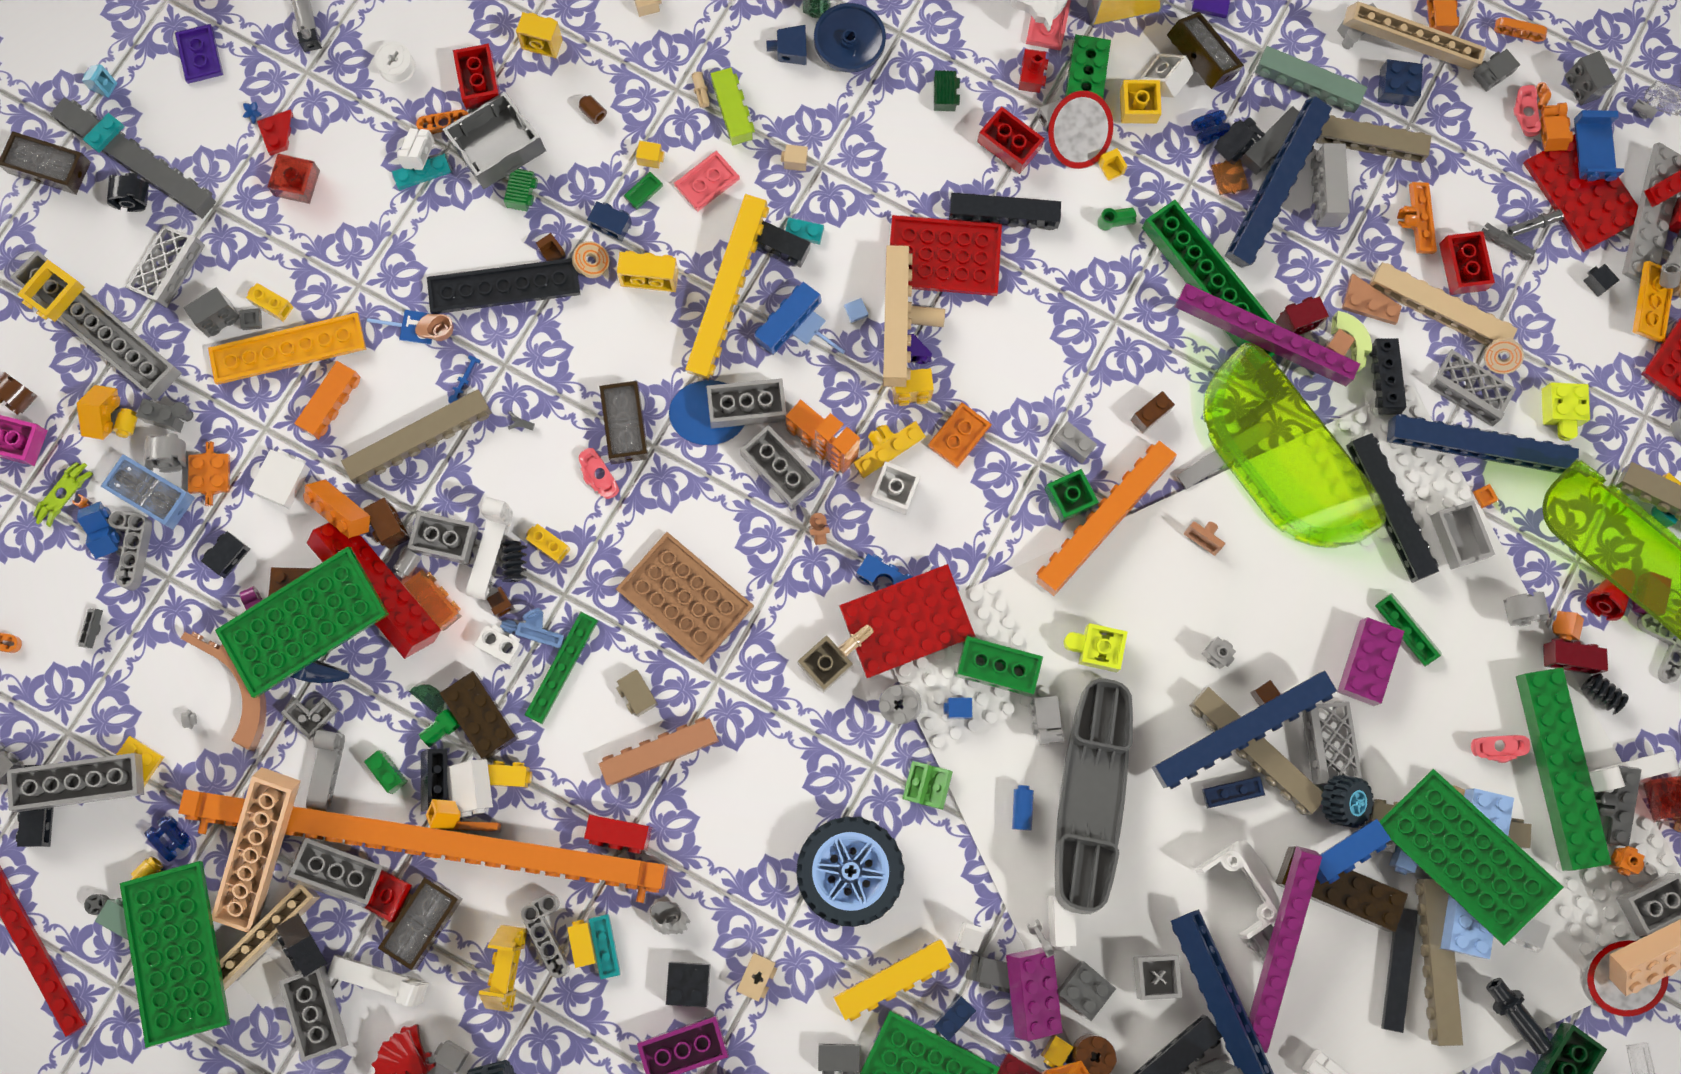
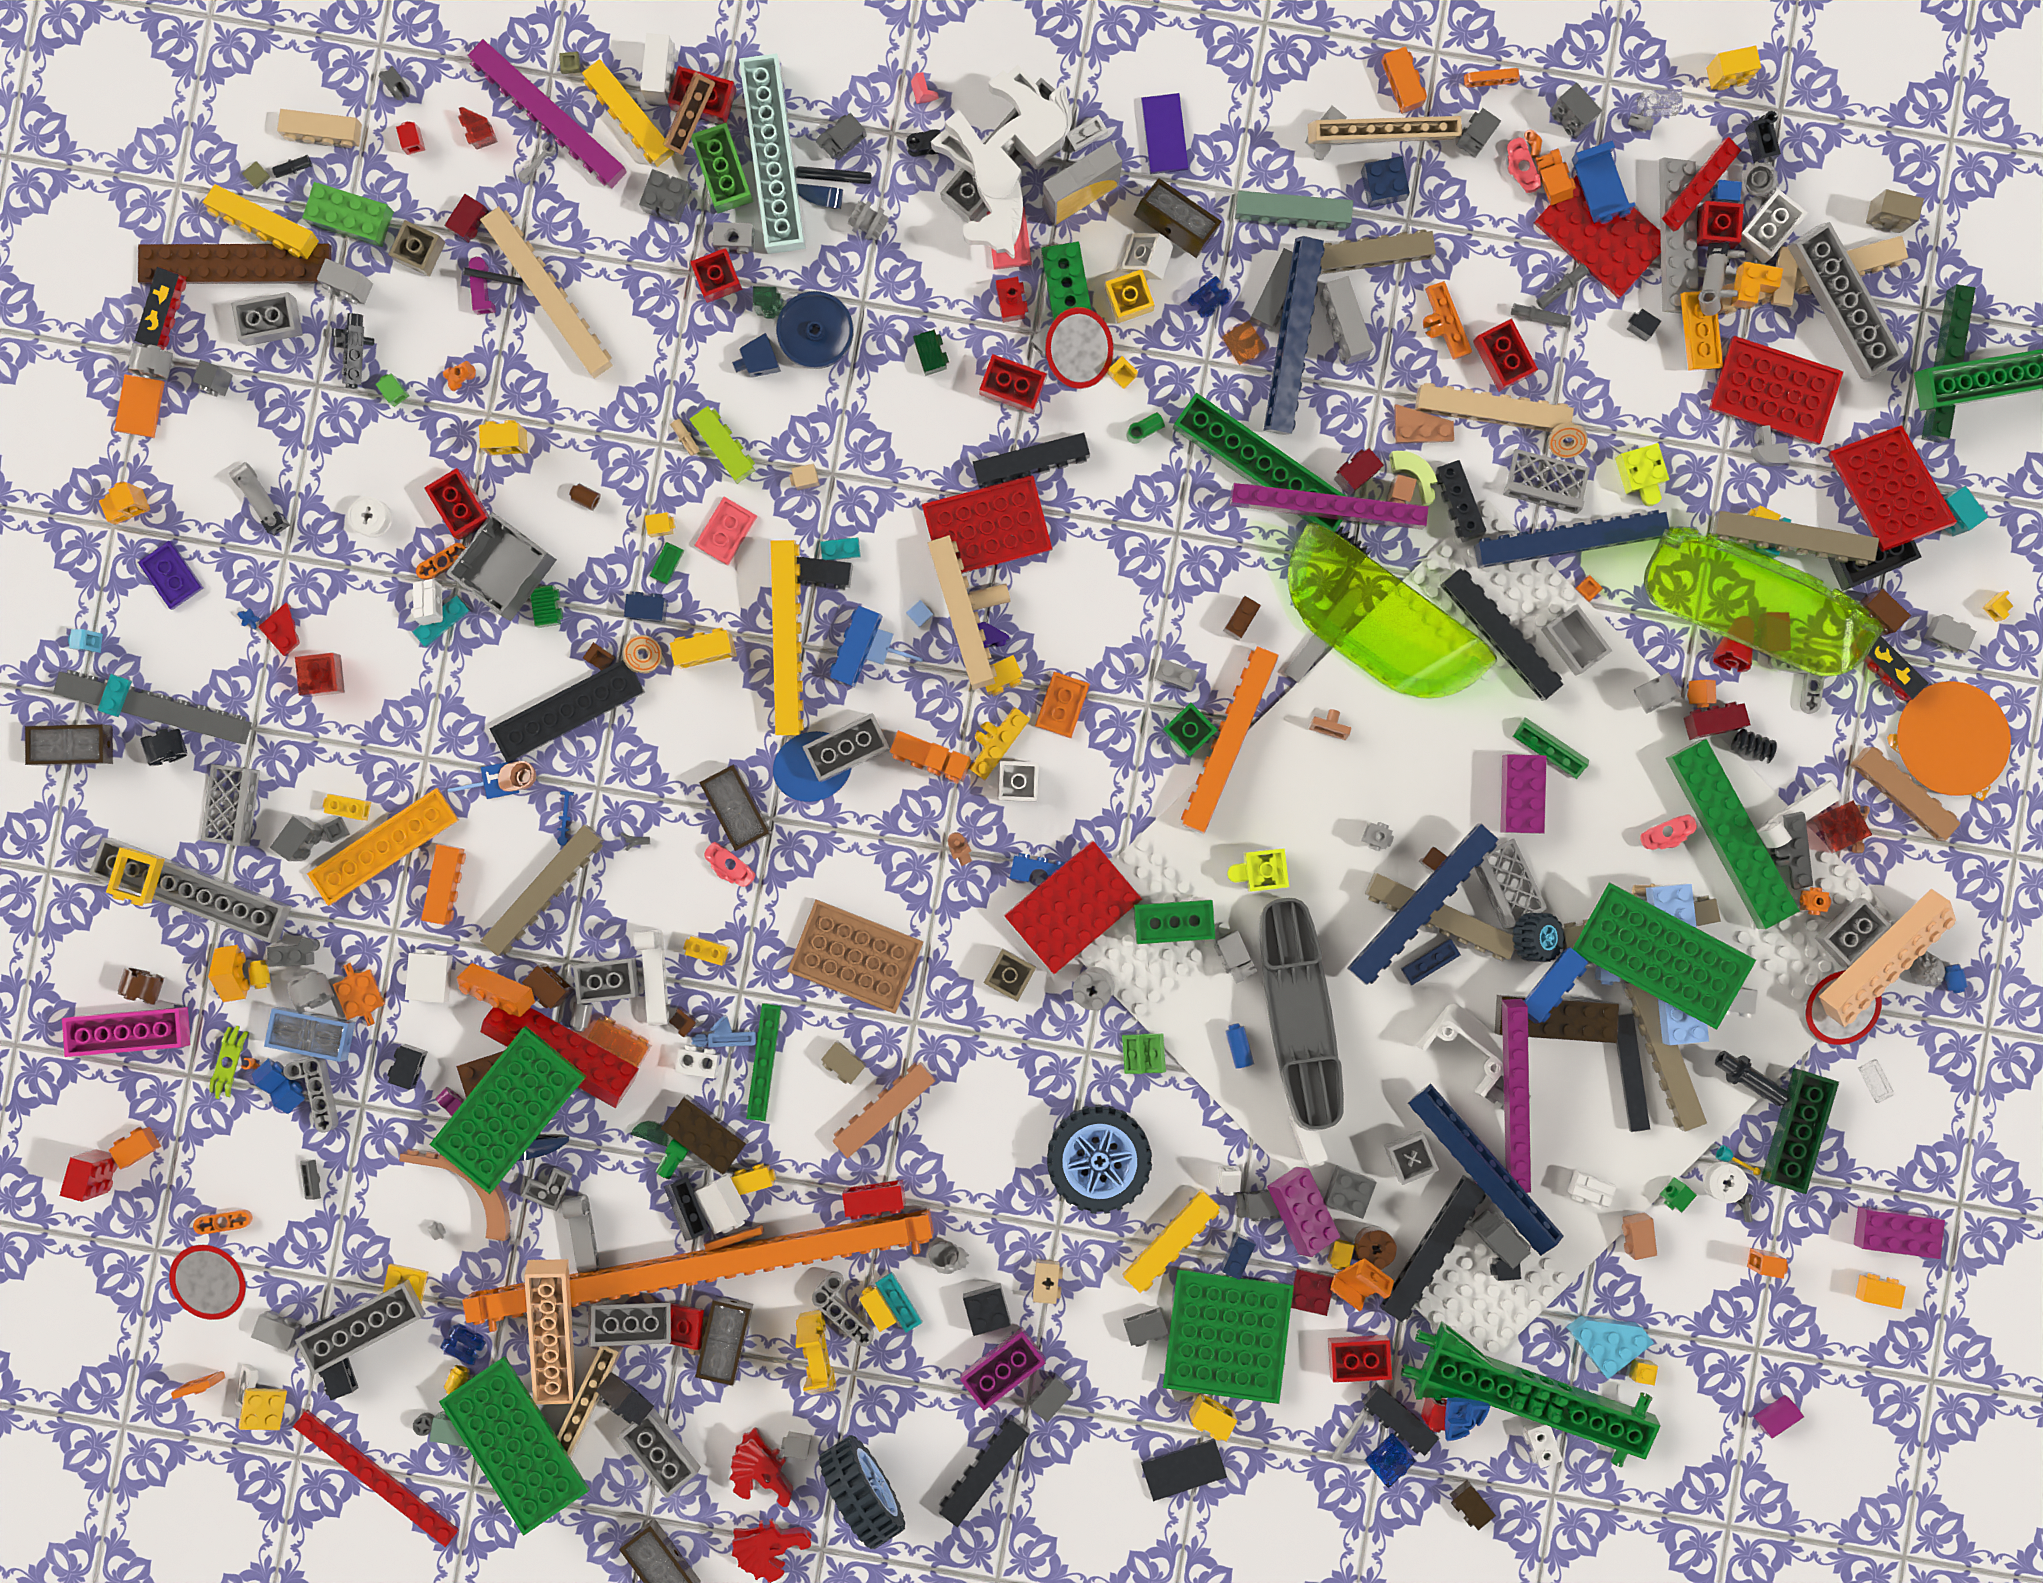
camera: 10 degrees left, 10 degrees up
(263, 980) = (601, 1437): white sticker -> none
(385, 771) = (638, 1216): green brick -> none
(406, 989) = (733, 1401): white beam -> none
(443, 814) = (707, 1239): light orange brick -> none
(513, 561) = (682, 979): black piece -> none
(780, 467) = (901, 799): light grey brick -> none
(855, 640) = (1031, 945): tan axle -> none
(958, 708) = (1149, 973): blue brick -> none
(1047, 947) = (1300, 1167): light grey piece -> none
(1238, 140) = (1240, 305): black hinge -> none

